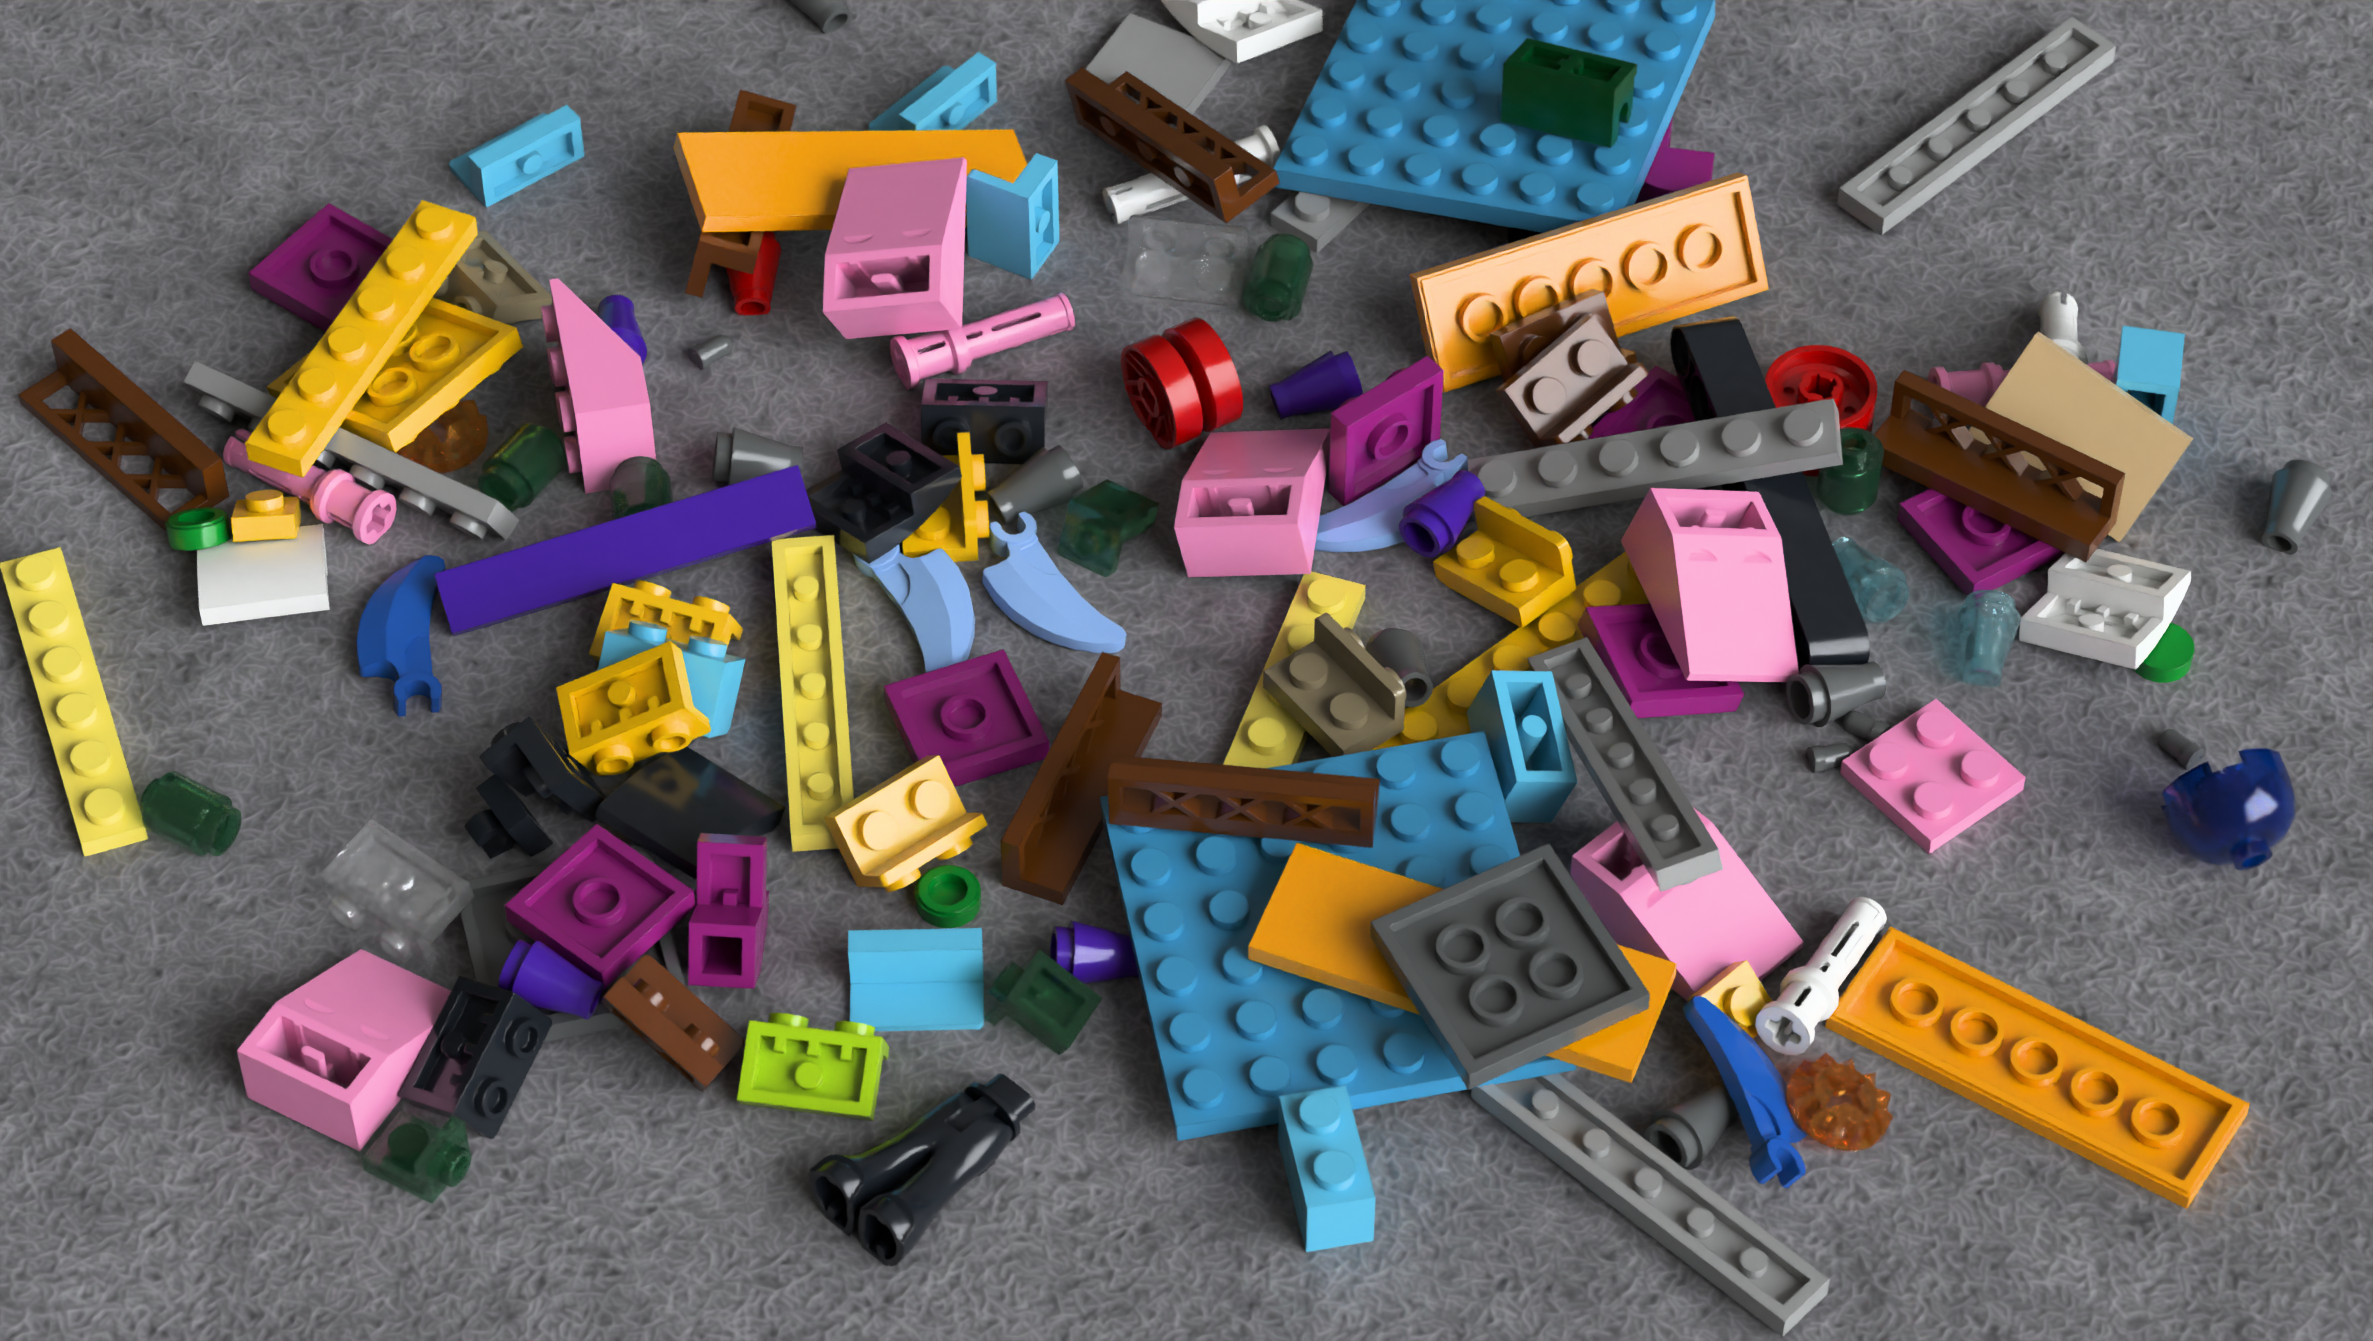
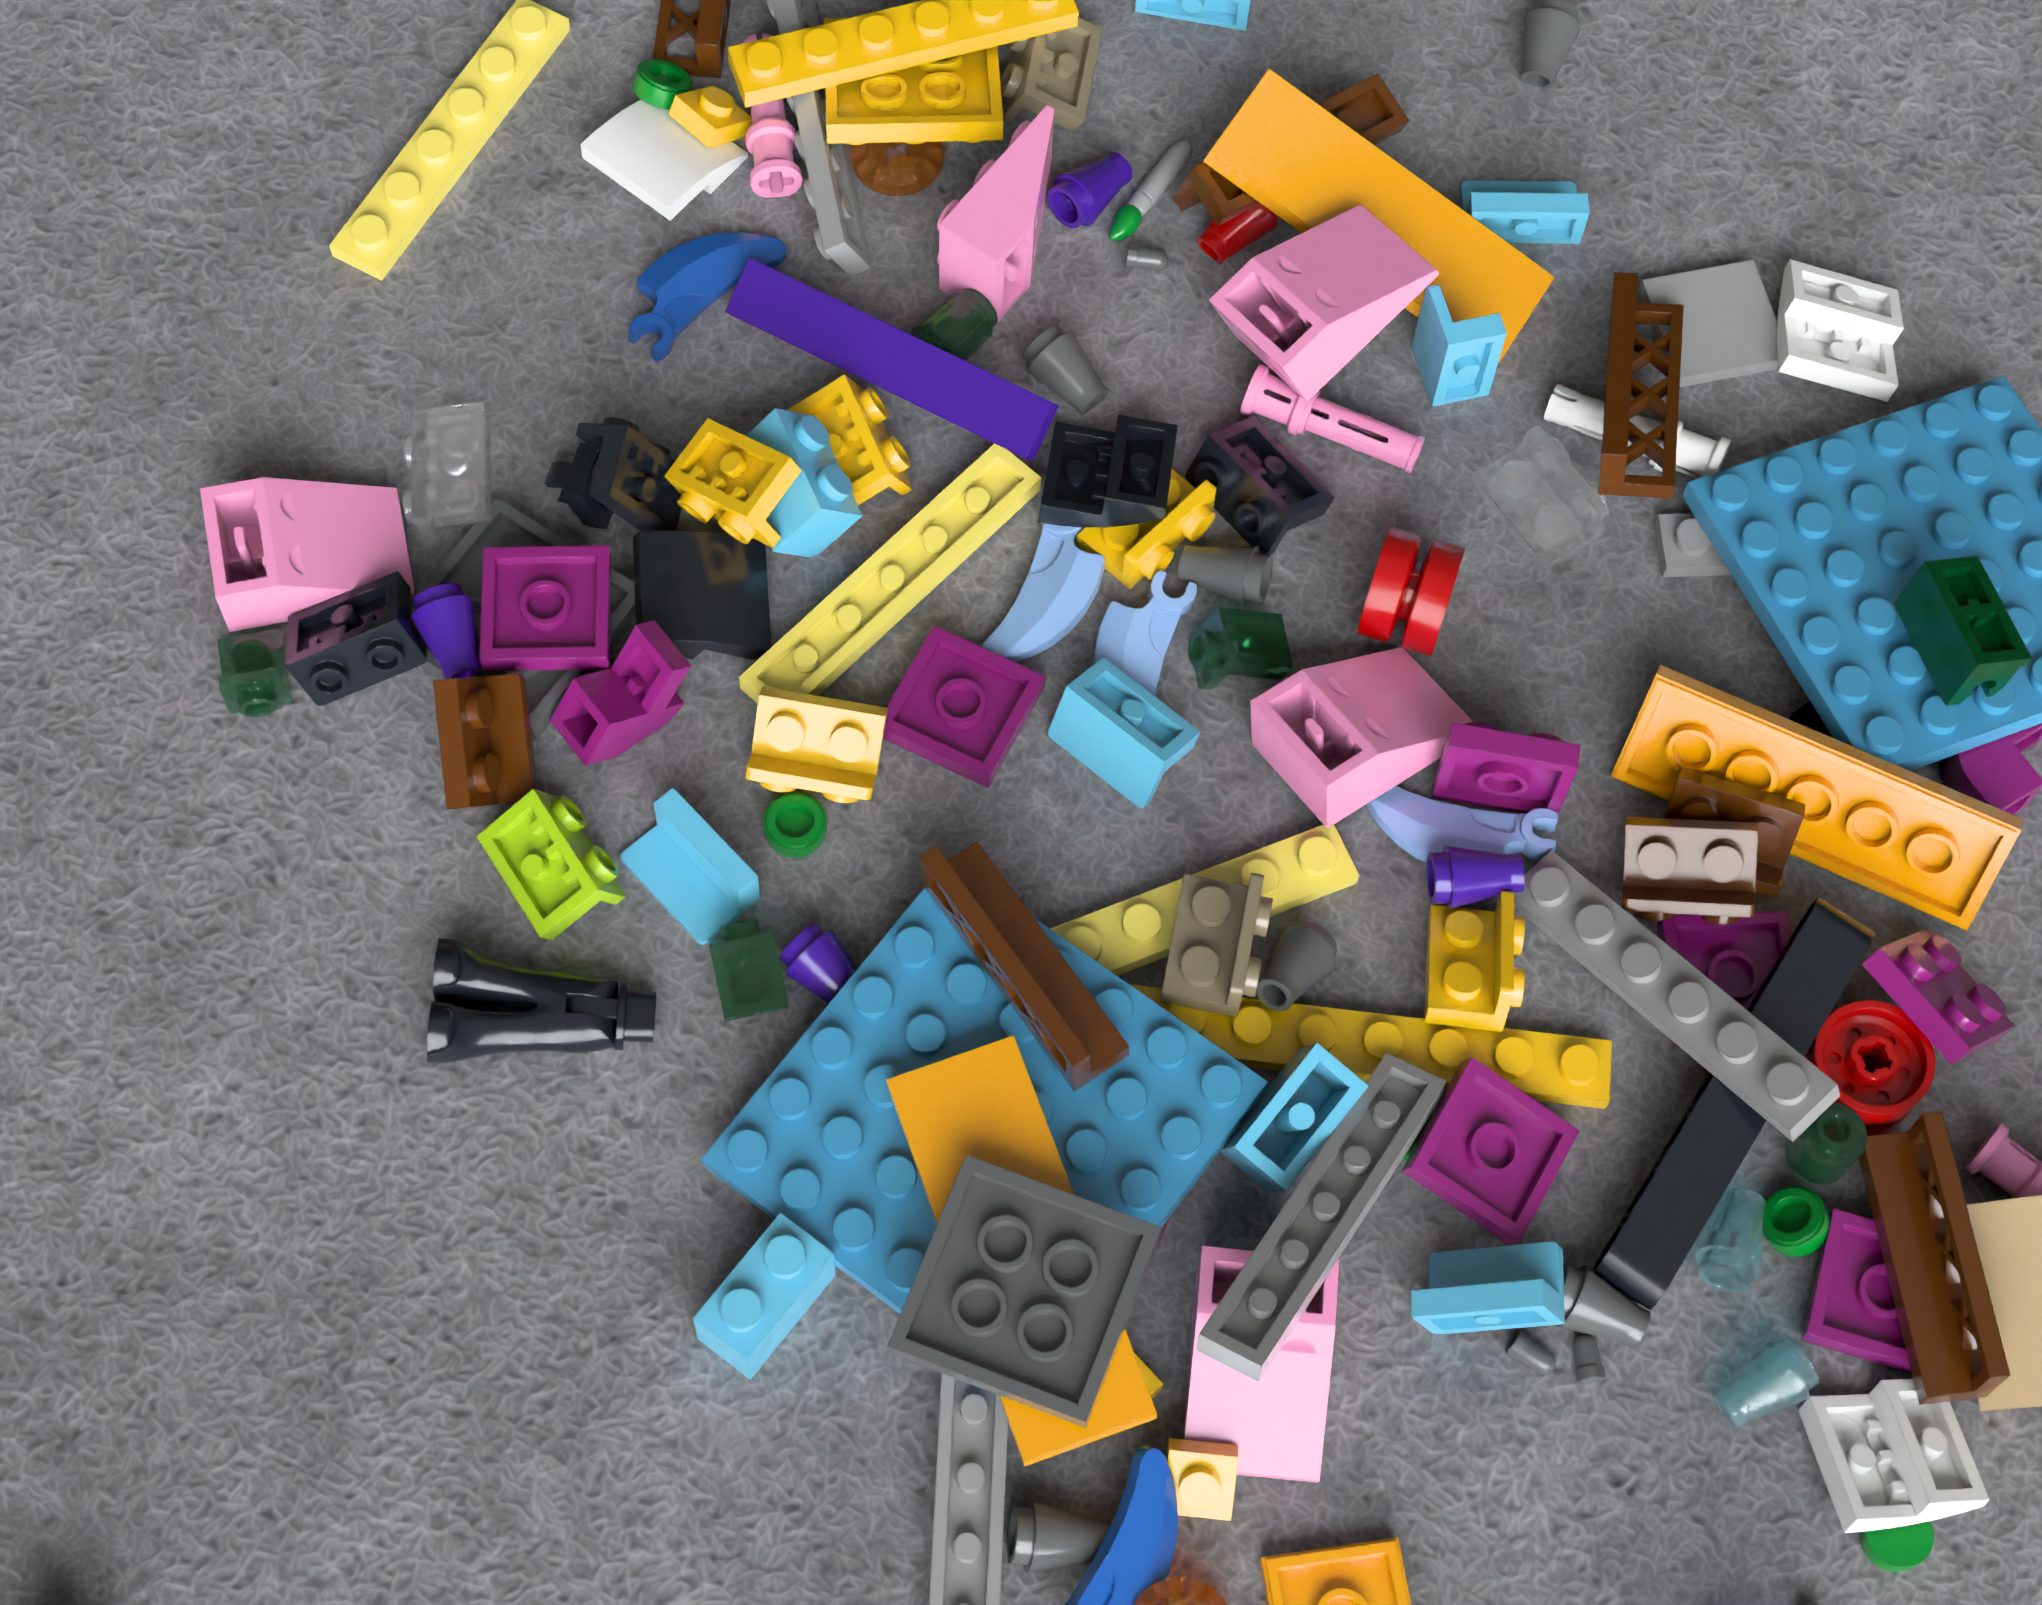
camera: 45 degrees right, 15 degrees up
(190, 814) = (408, 288): clear green brick -> none
(522, 466) = (902, 230): clear green brick -> none
(664, 333) = (1130, 215): none -> light grey piece
(1062, 806) = (1005, 814): reddish brown fence -> none
(1081, 626) = (1120, 731): none -> medium azure panel
(1278, 278) = (1597, 572): clear green brick -> none
(1317, 386) = (1520, 685): dark purple cone -> none
(1715, 583) = (1588, 1139): bright pink slope -> none
(1766, 731) = (1492, 1289): none -> medium azure panel
(1811, 990) = (1262, 1537): white pin -> none
(1834, 325) = (1939, 995): none -> magenta plate
(1887, 532) = (1795, 1221): none -> green tile
(1932, 775) = (1587, 1450): bright pink plate -> none

